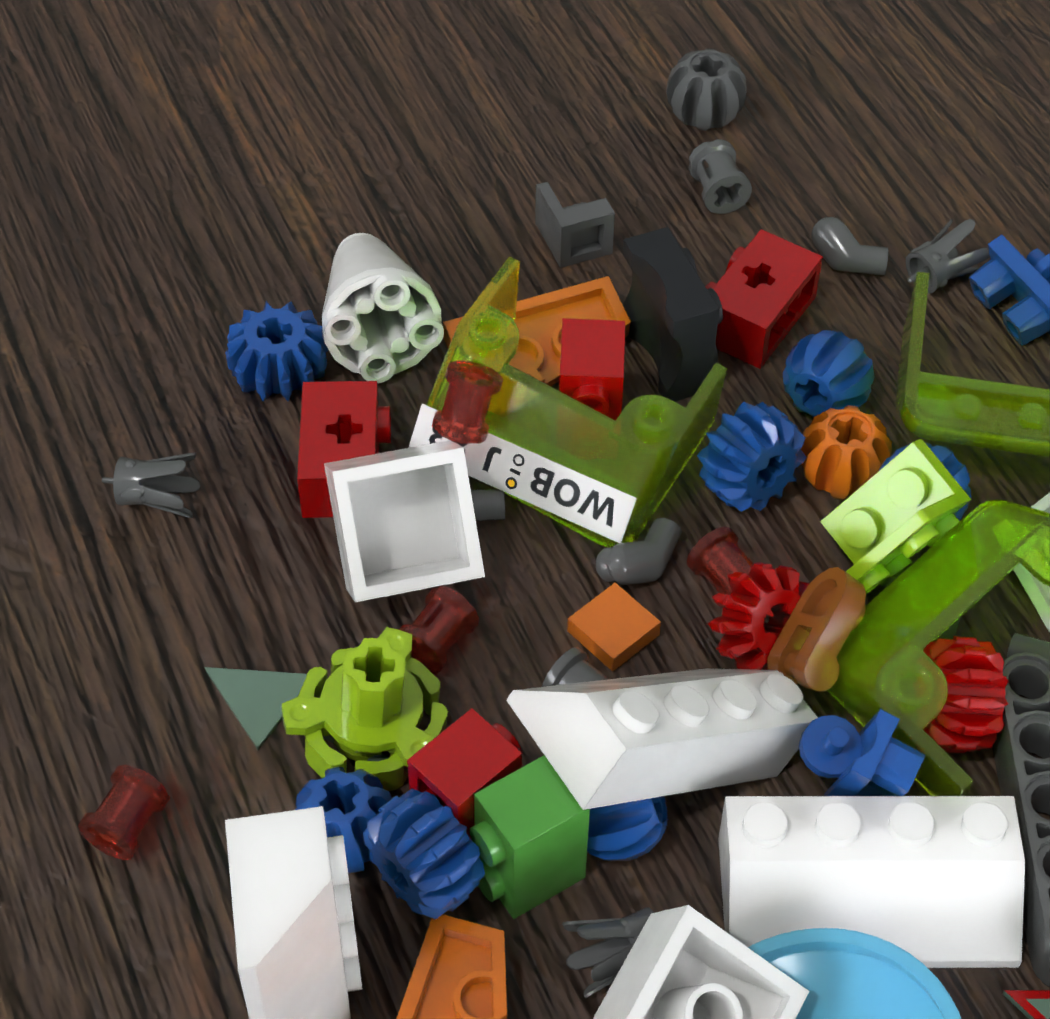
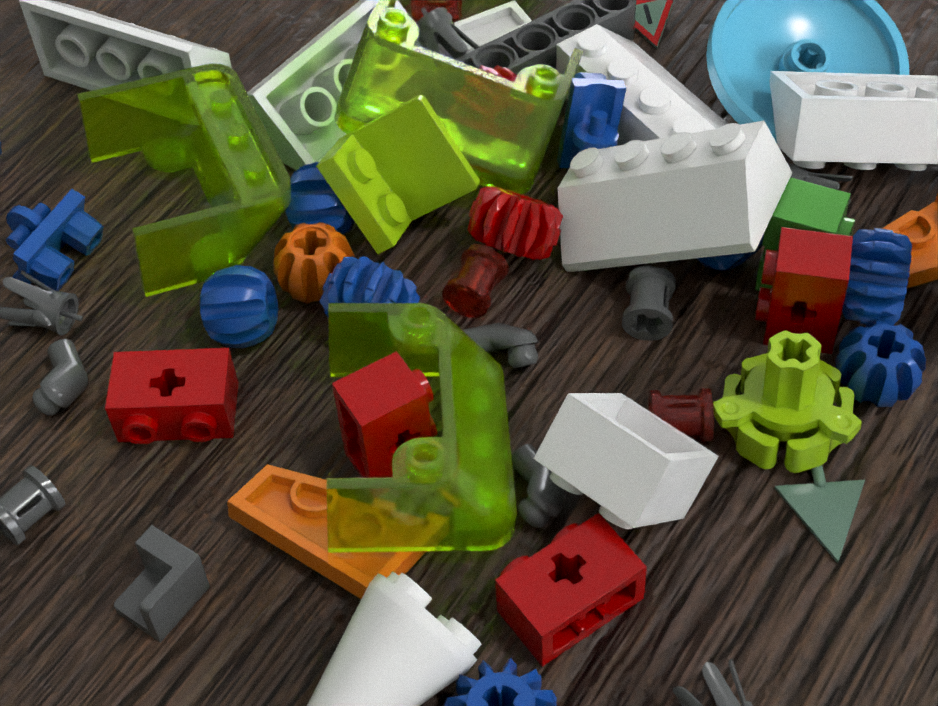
camera: 120 degrees left, 0 degrees up
(467, 402) = (499, 447): clear red bush -> none
(538, 480) = (503, 436): white sticker -> none
(613, 626) = (574, 328): orange tile -> none
(671, 312) = (257, 412): black brick -> none
(818, 629) = (504, 159): dark orange plate -> none

